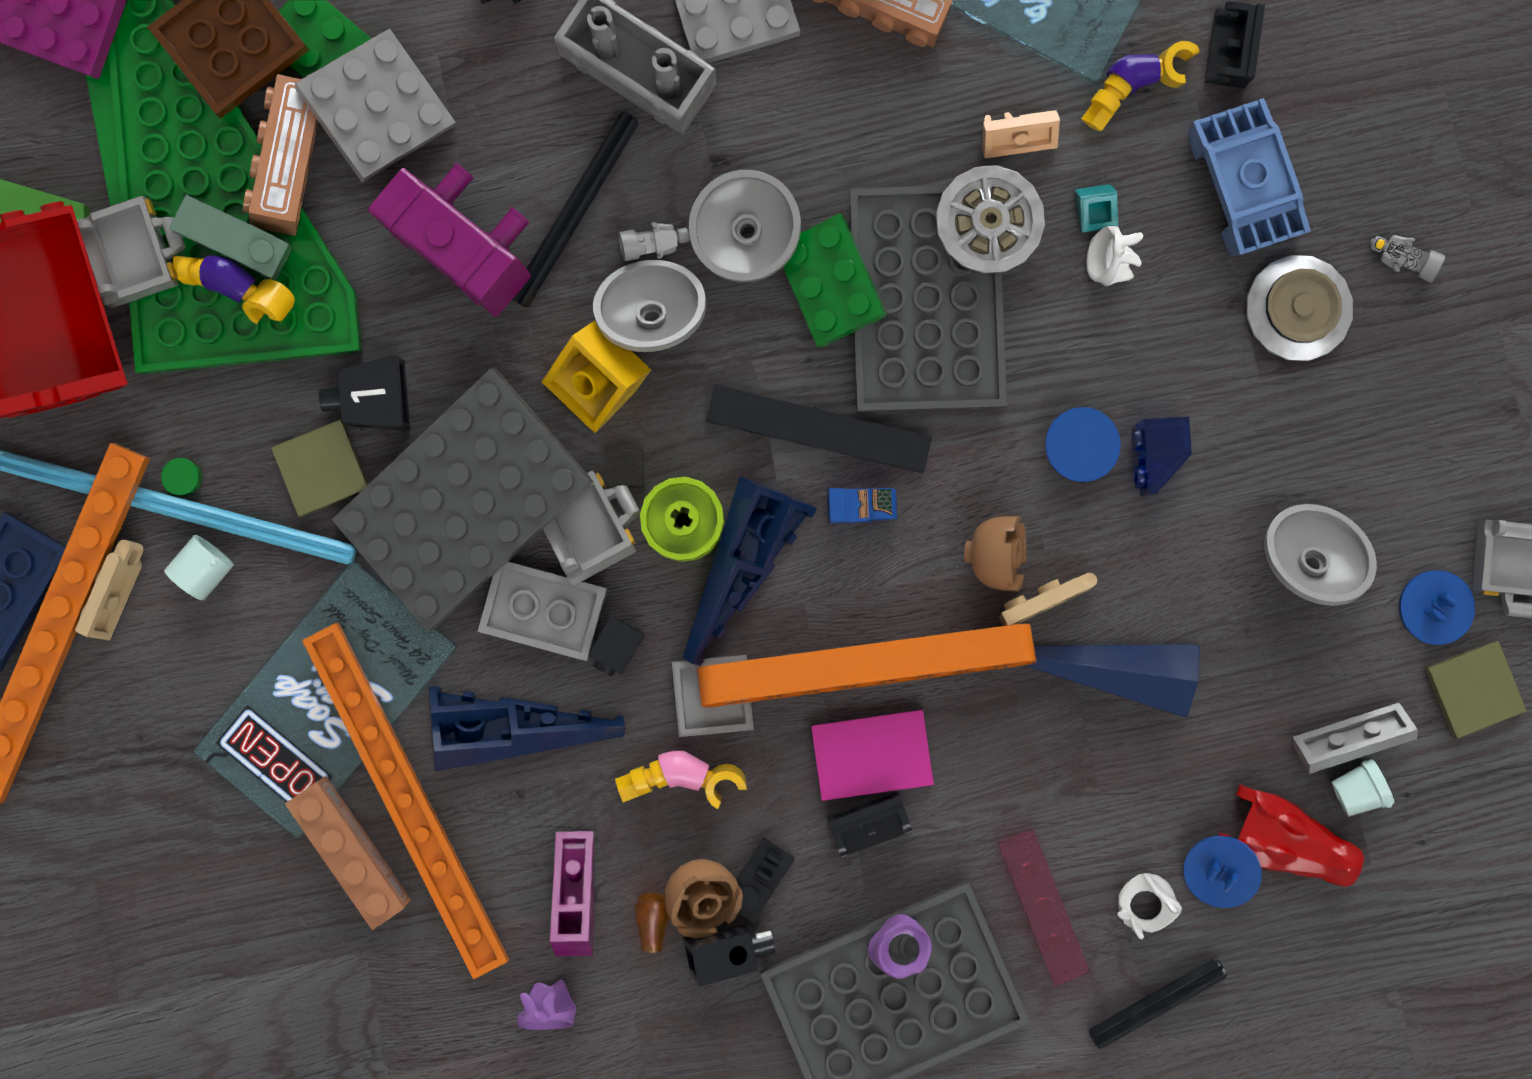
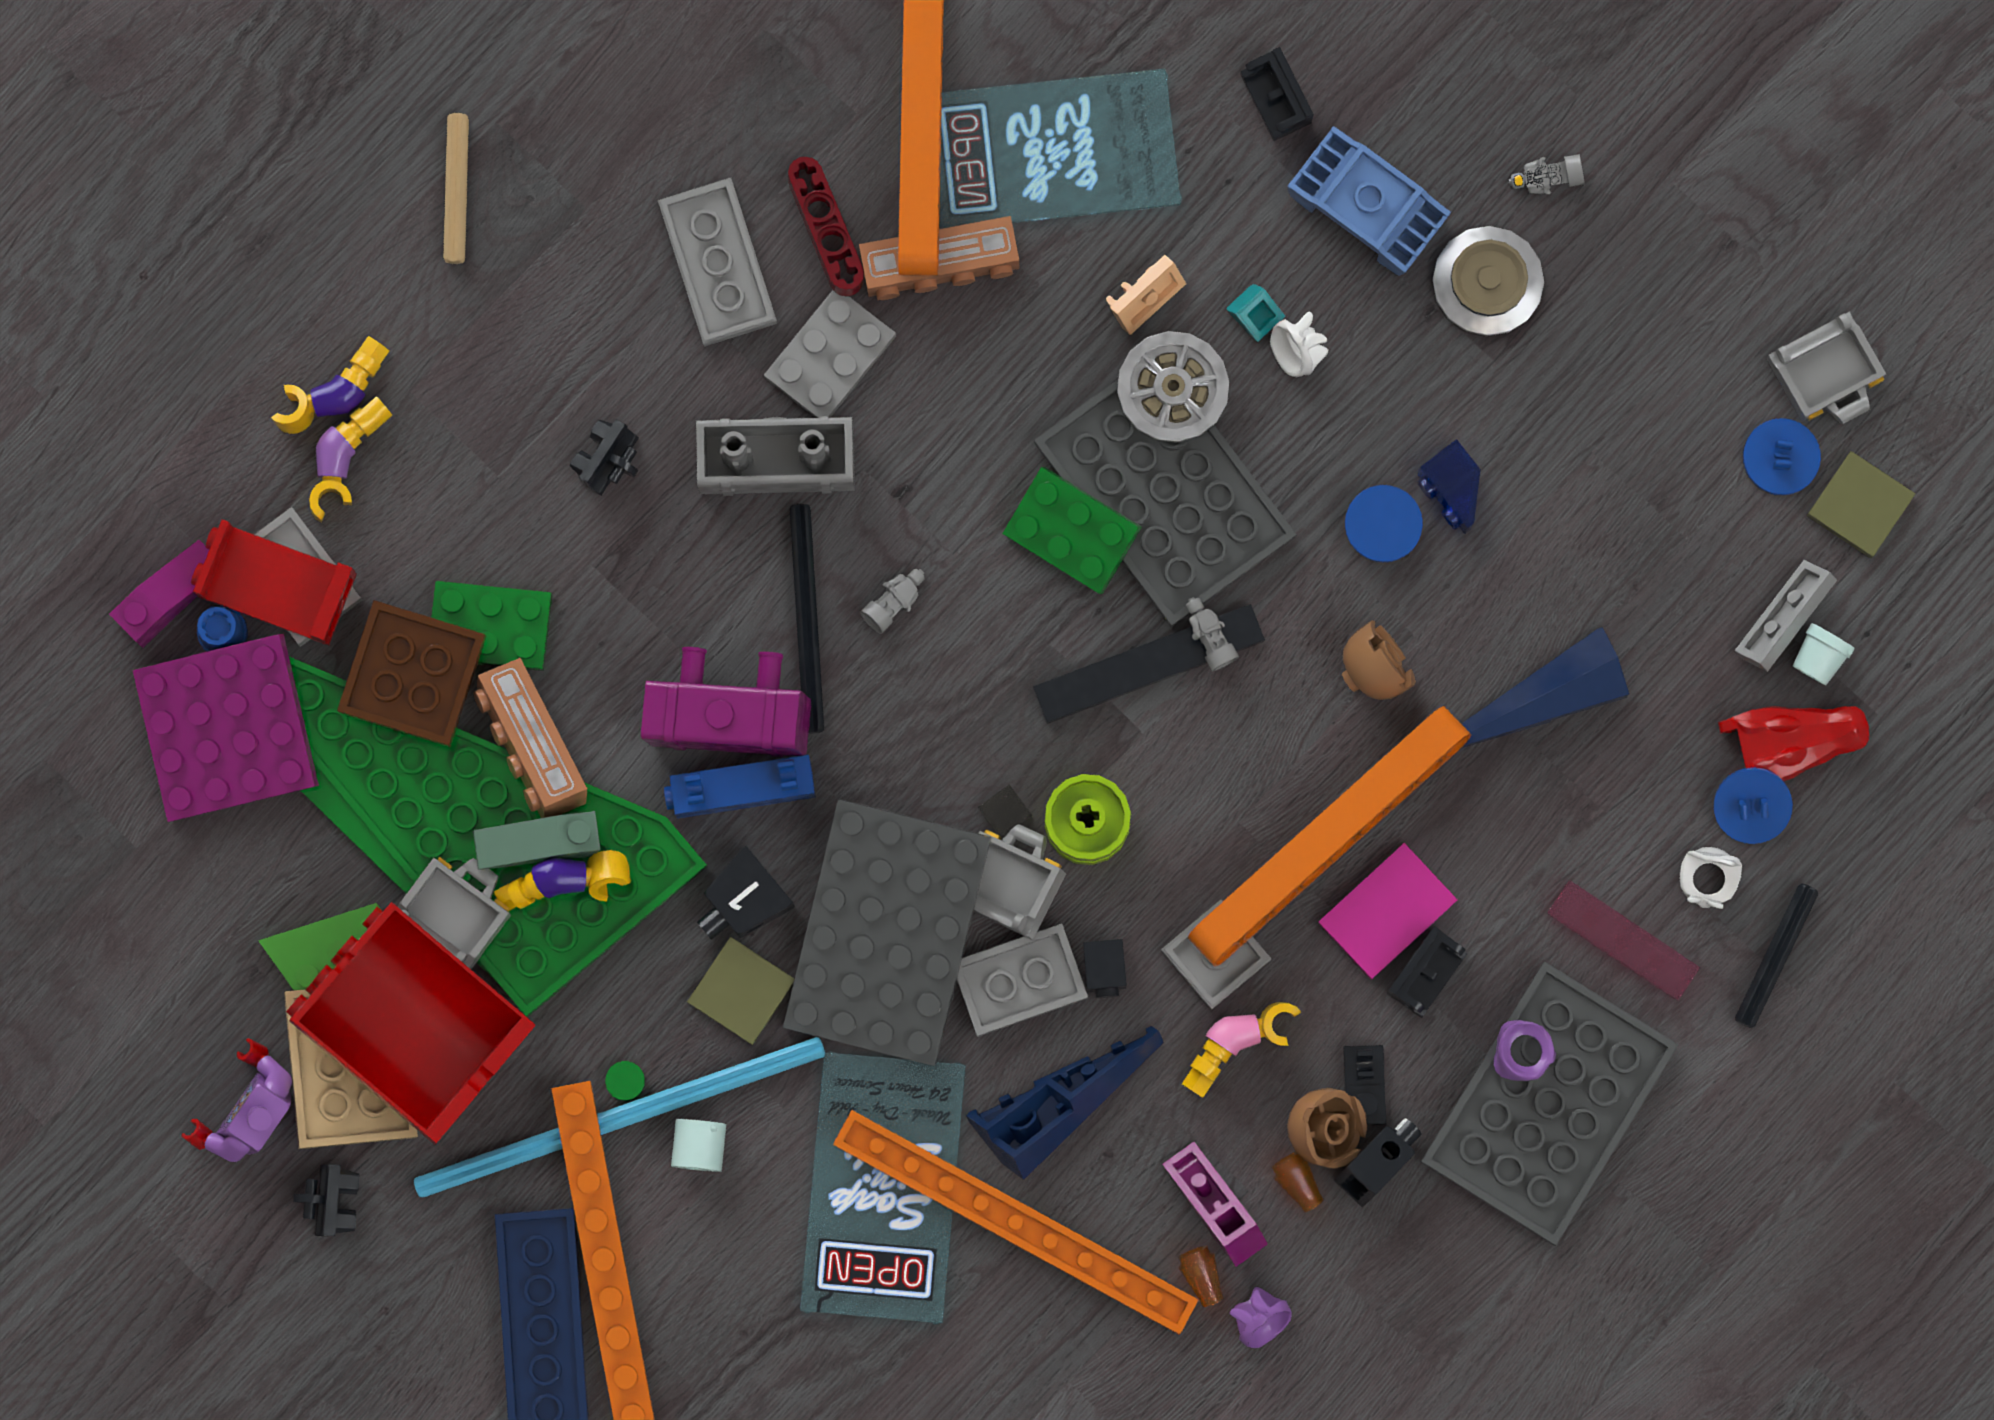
camera: 30 degrees left, 5 degrees down
(111, 591) = (634, 1216): tan hinge -> none
(348, 852) = (998, 1298): nougat brick -> none
(375, 105) = (577, 645): light grey plate -> none
(429, 306) = (740, 787): none -> blue brick
(524, 942) = (1201, 1273): none -> clear orange cone
(595, 376) = (925, 748): yellow slope -> none
(649, 305) = (924, 644): light grey dish -> none
(739, 202) = (951, 511): light grey dish -> none
(752, 537) = (1156, 789): dark blue wedge -> none
(861, 505) = (1230, 704): blue leg -> none
(883, 432) = (1208, 629): none -> light grey piece
(1050, 595) = (1446, 670): tan hinge -> none
(1132, 73) = (1205, 182): yellow piece -> none
(1320, 554) = (1642, 467): light grey dish -> none

